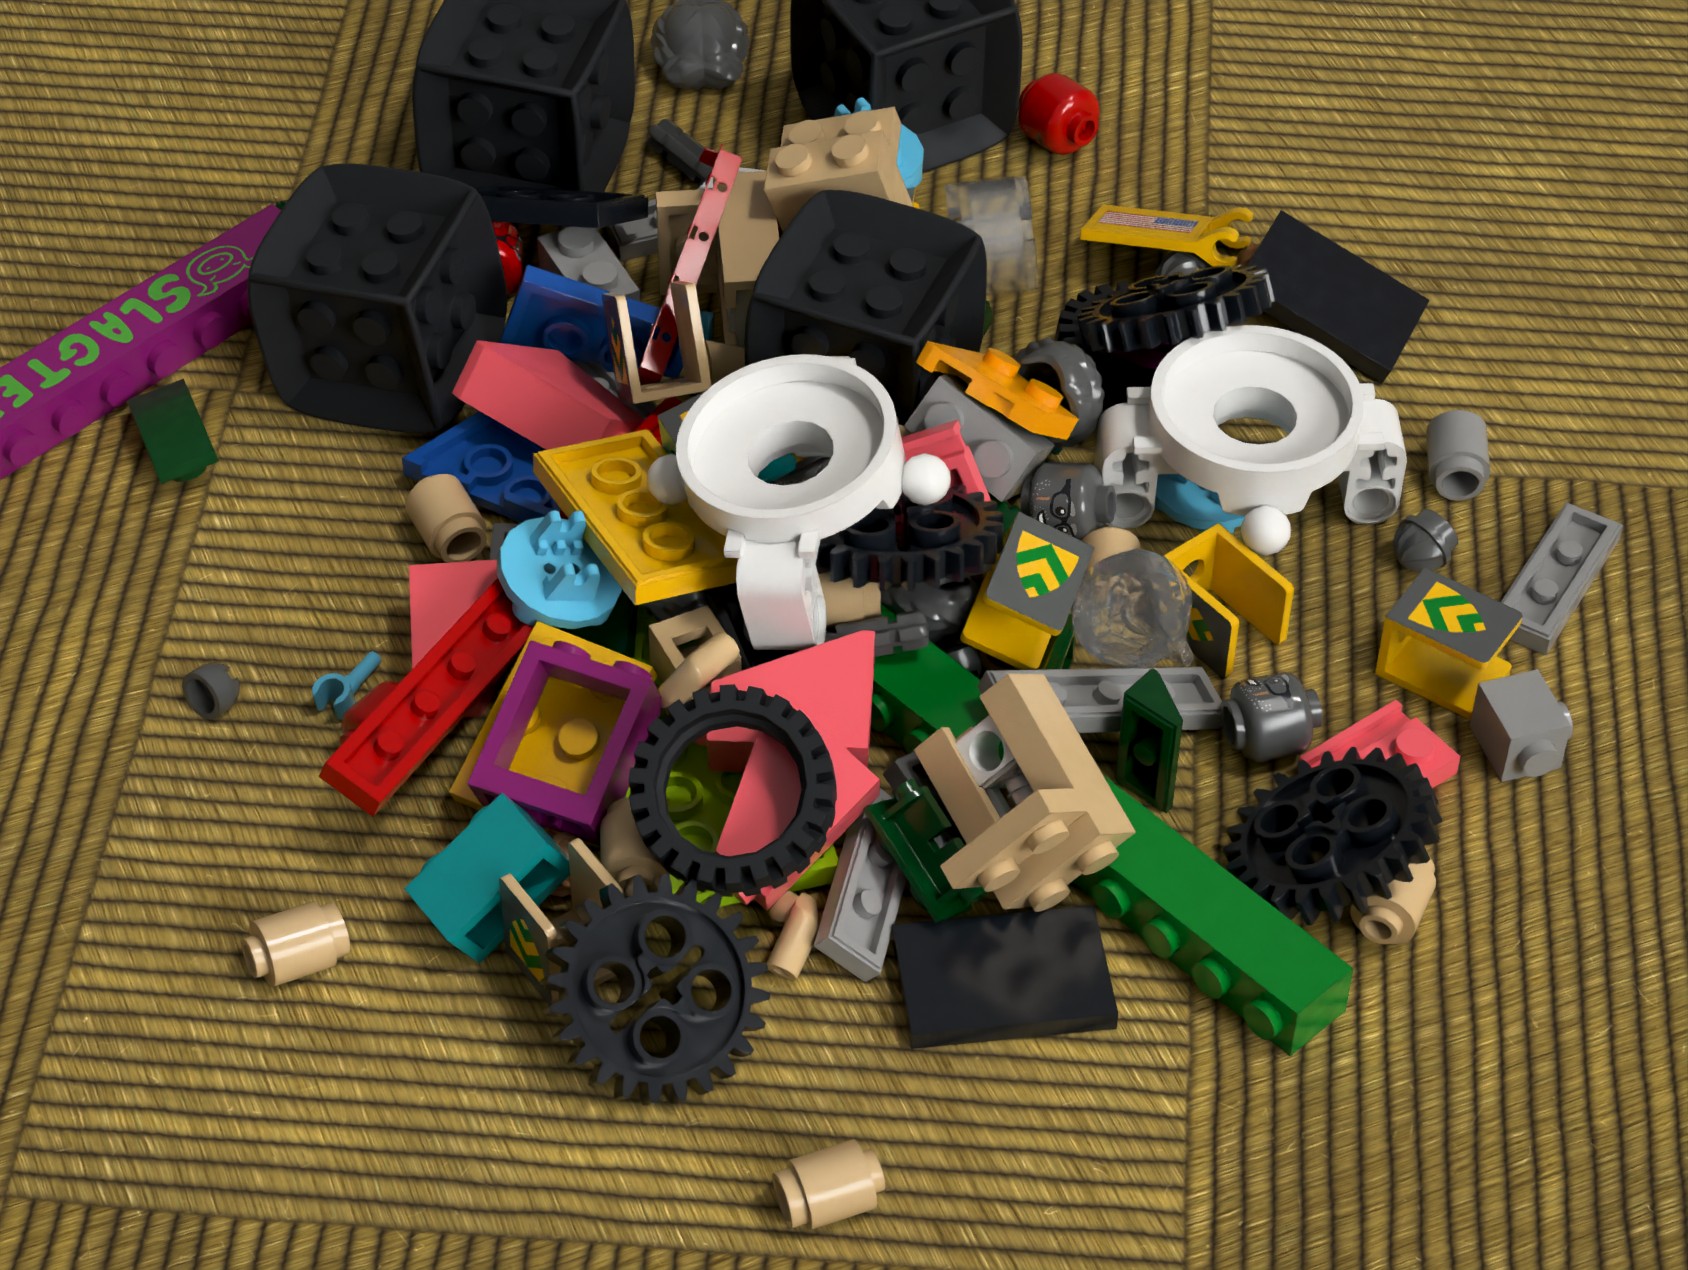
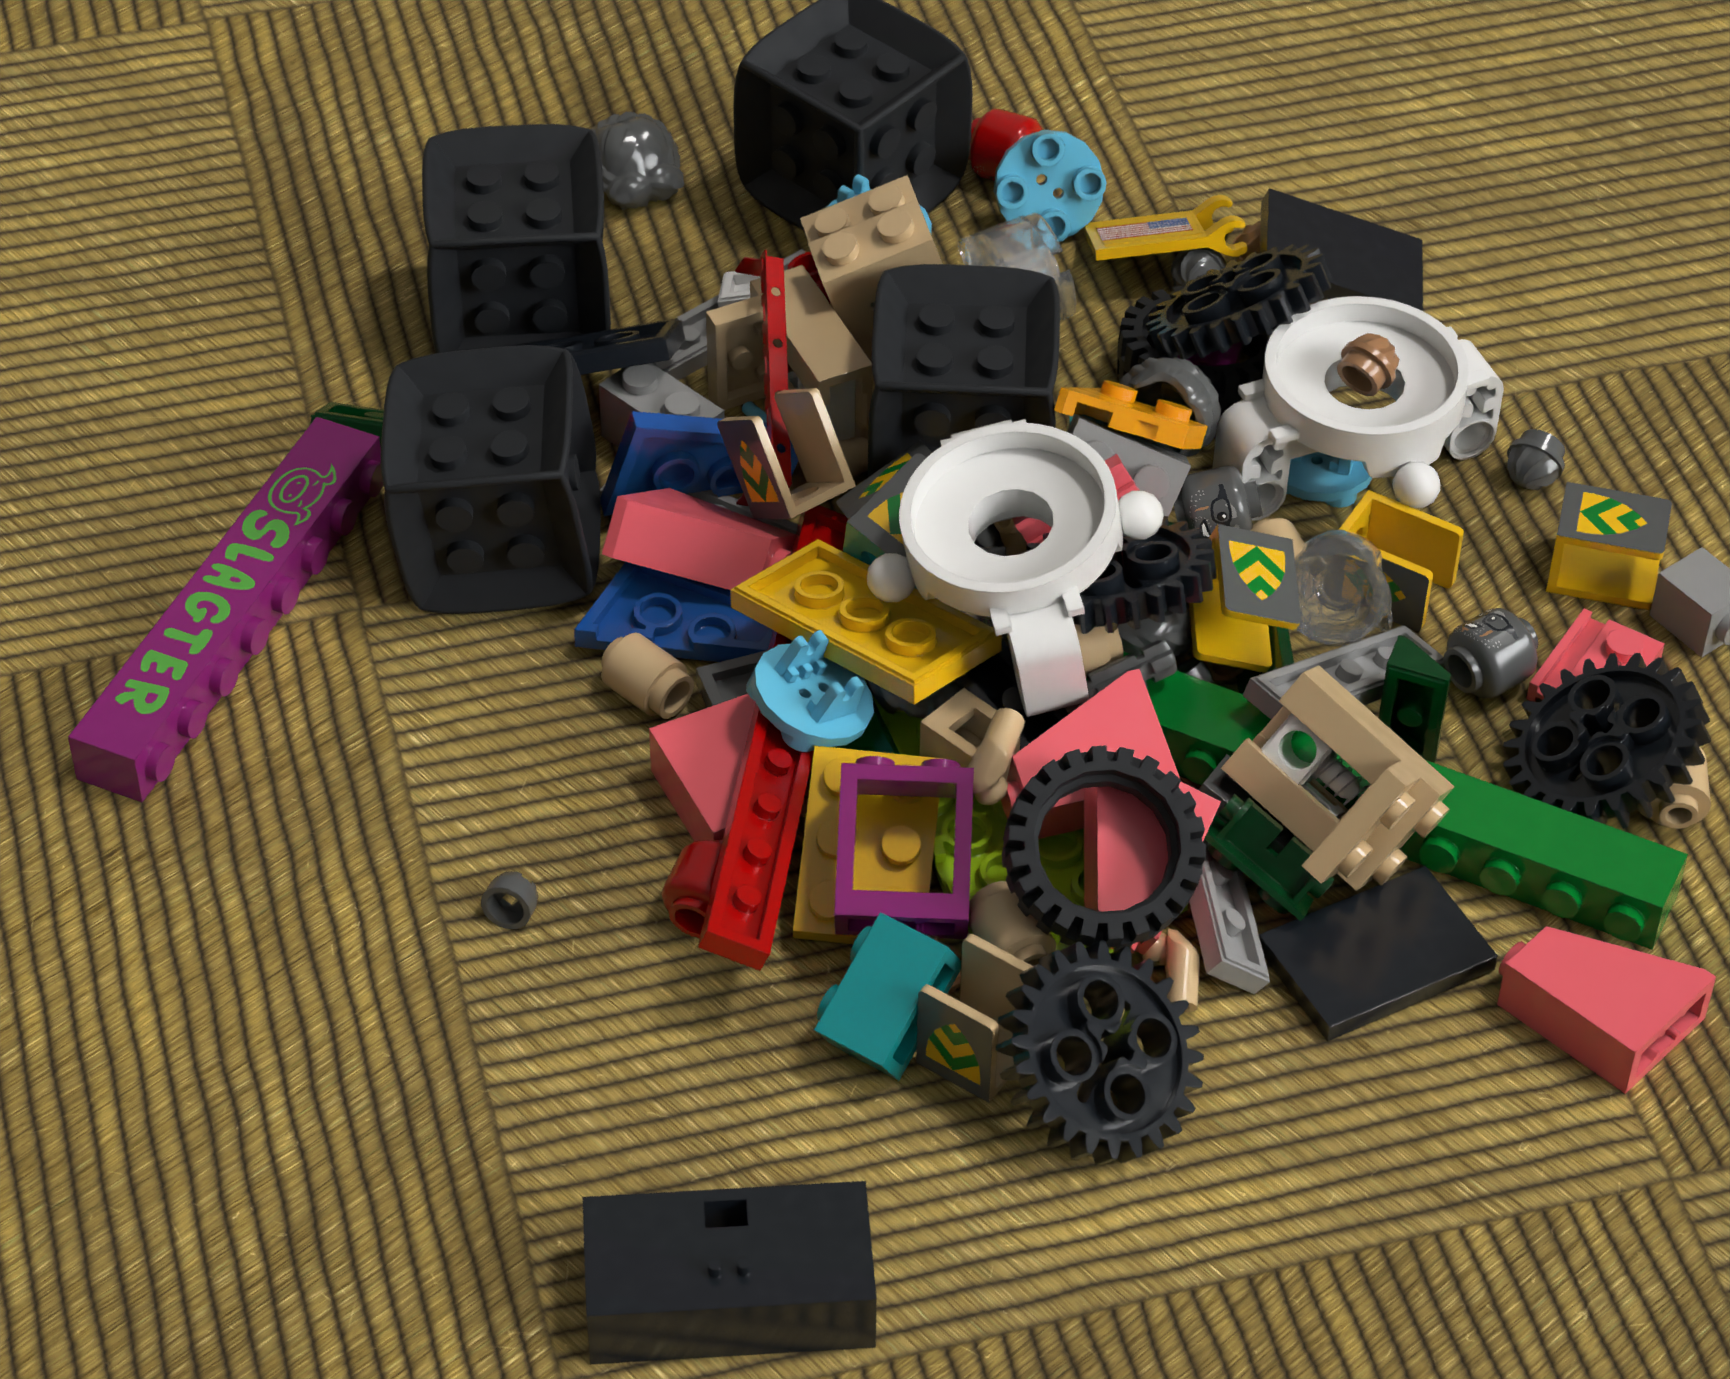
camera: 20 degrees left, 0 degrees up
(173, 432) = (334, 663): dark green slope -> none
(205, 1092) = (729, 1272): none -> black brick
(295, 943) = (730, 1111): tan brick -> none
(343, 687) = (634, 860): medium azure hand -> none
(679, 150) = (674, 270): dark grey axle -> none
(828, 1185) = (1333, 1182): tan brick -> none
(1094, 140) = (1066, 165): none -> medium azure plate
(1201, 1092) = (1603, 1001): none -> coral slope
(1261, 396) = (1368, 364): none -> medium nougat plate
(1458, 454) = (1526, 373): light grey brick -> none
(1560, 574) = (1659, 451): light grey tile -> none

